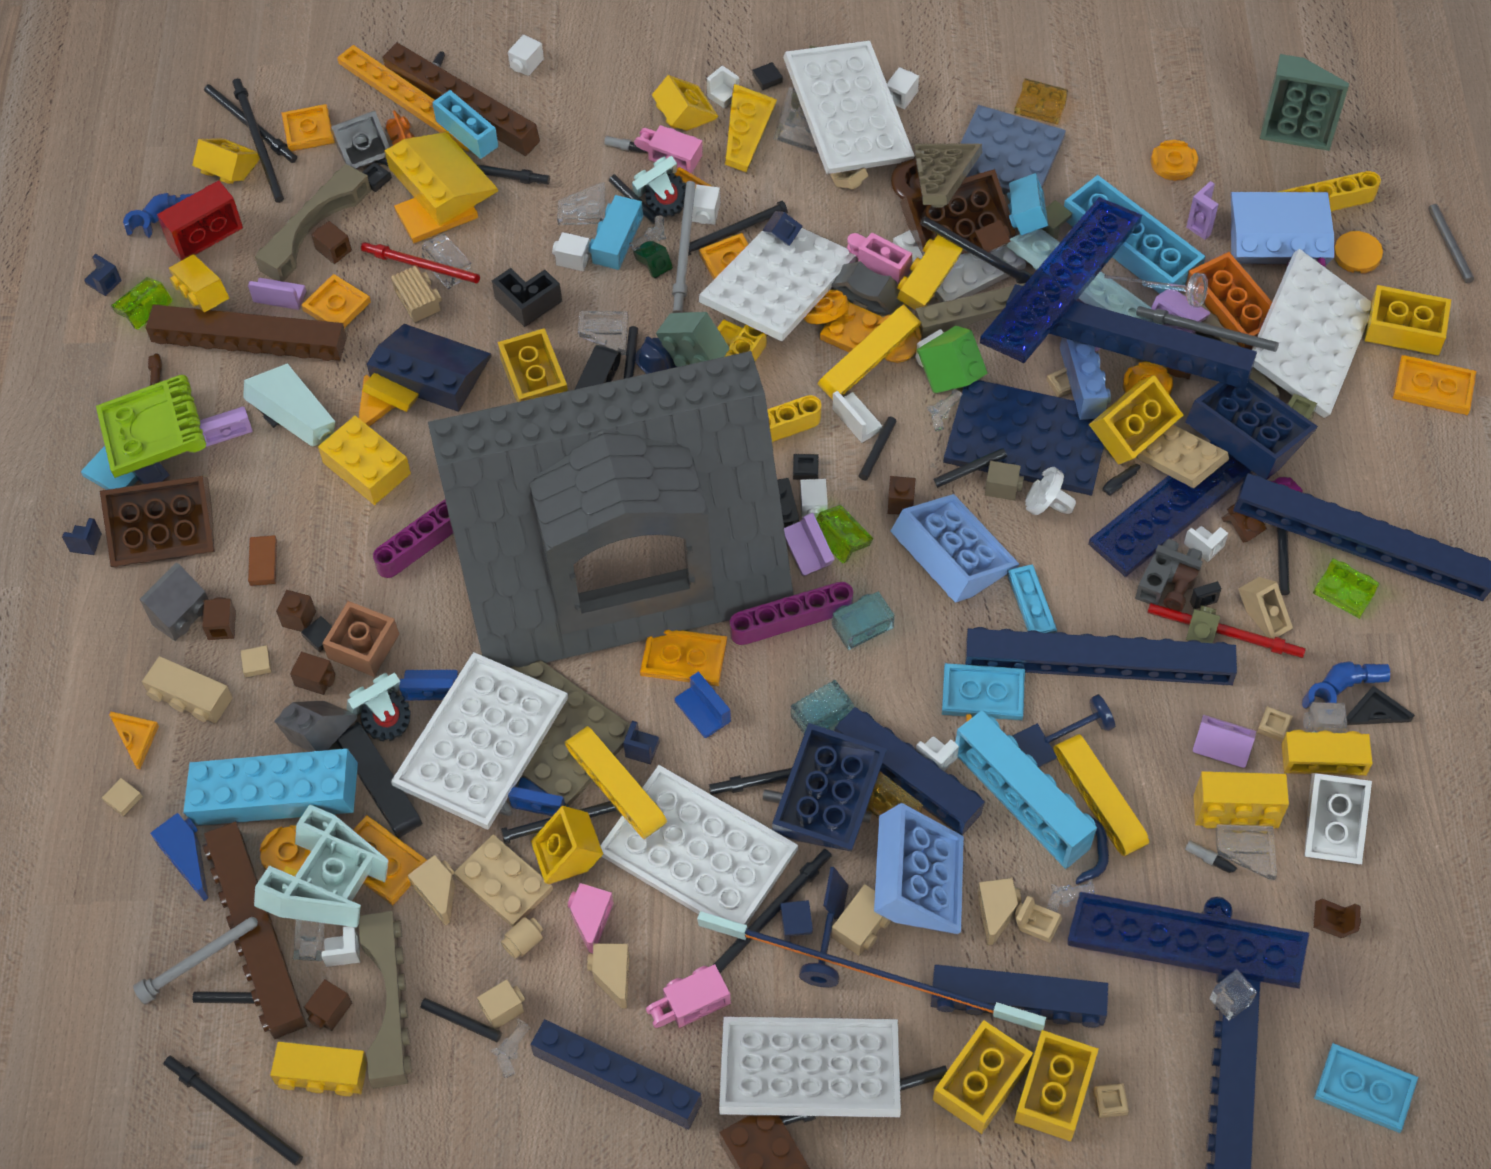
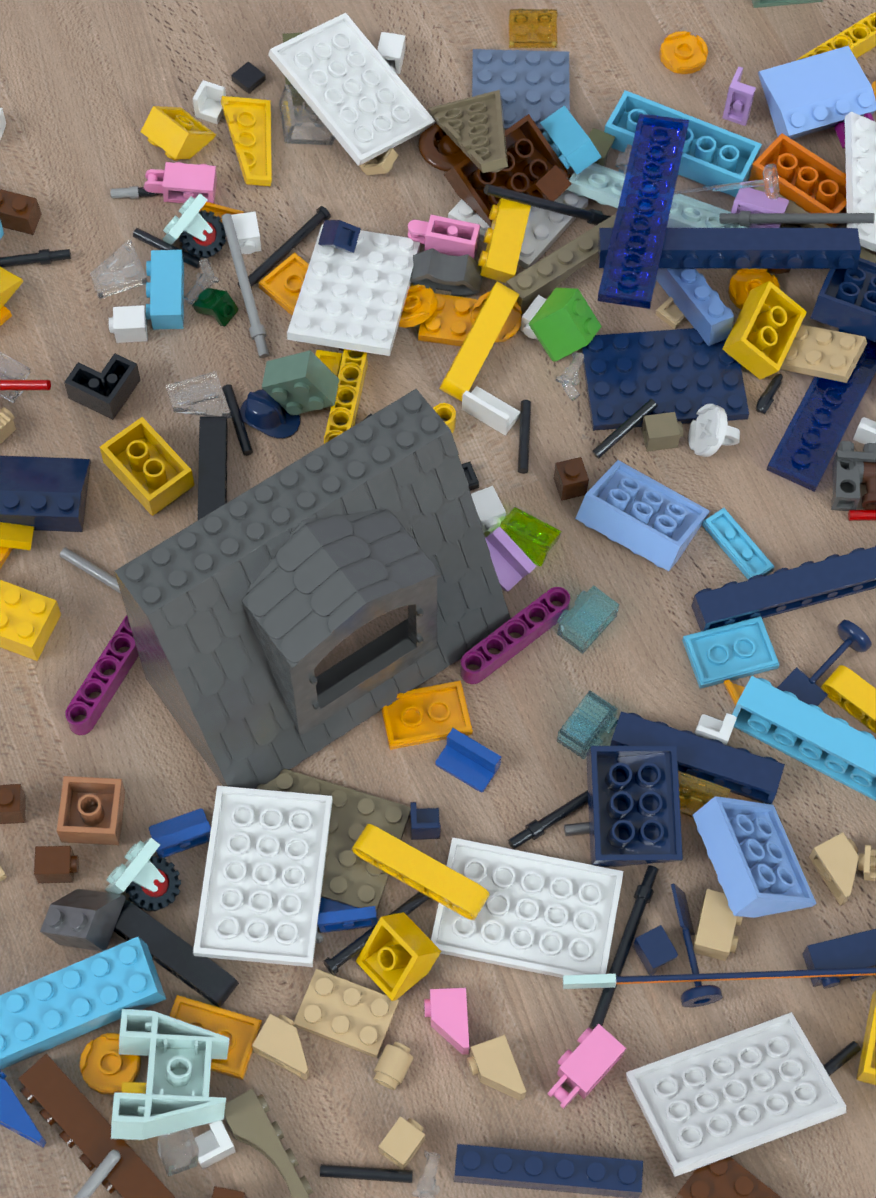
camera: 25 degrees left, 5 degrees up
(317, 632) = (41, 819): black tile -> none

